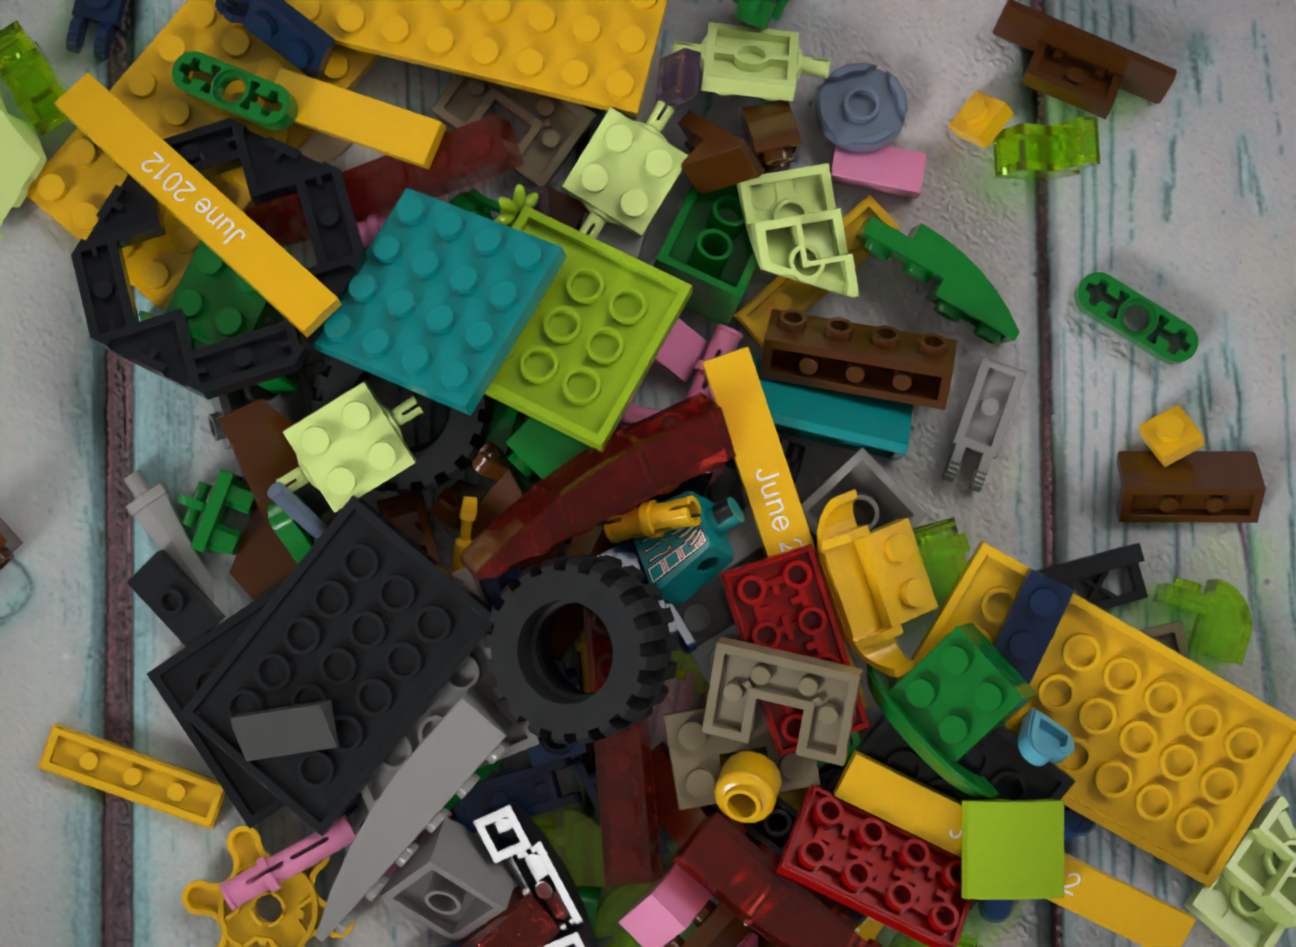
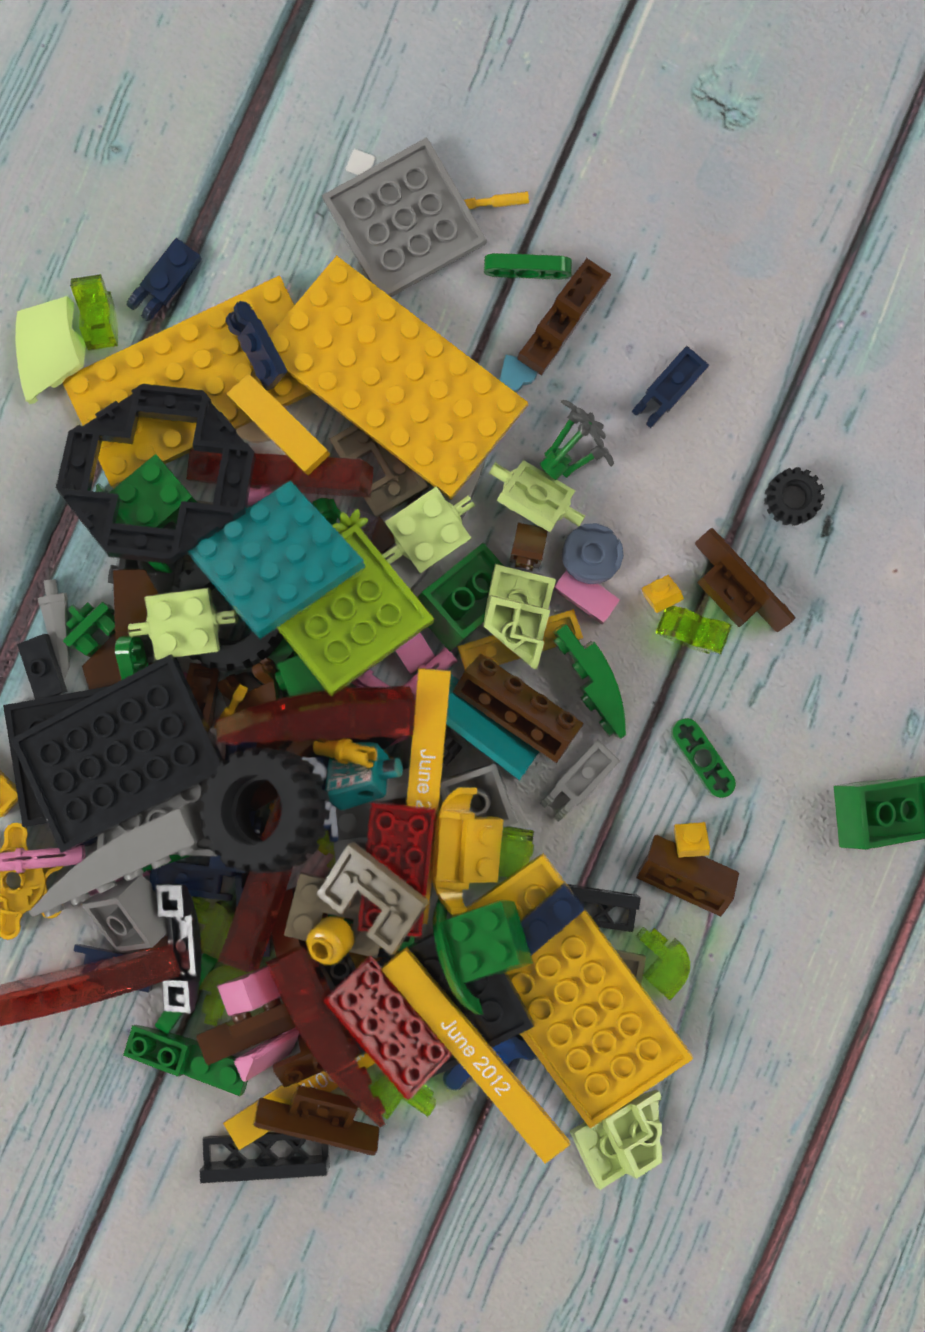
camera: 25 degrees right, 0 degrees up
(198, 205) = (158, 435): yellow tile -> none
(224, 74) = (216, 387): green beam -> none
(286, 730) = (67, 778): dark grey slope -> none
(296, 509) = (133, 647): sand blue bar -> none
(679, 77) = (486, 486): plate -> none
(716, 155) = (487, 544): reddish brown slope -> none
(1012, 849) = (474, 1052): lime slope -> none
(1043, 739) = (525, 992): medium azure tile -> none

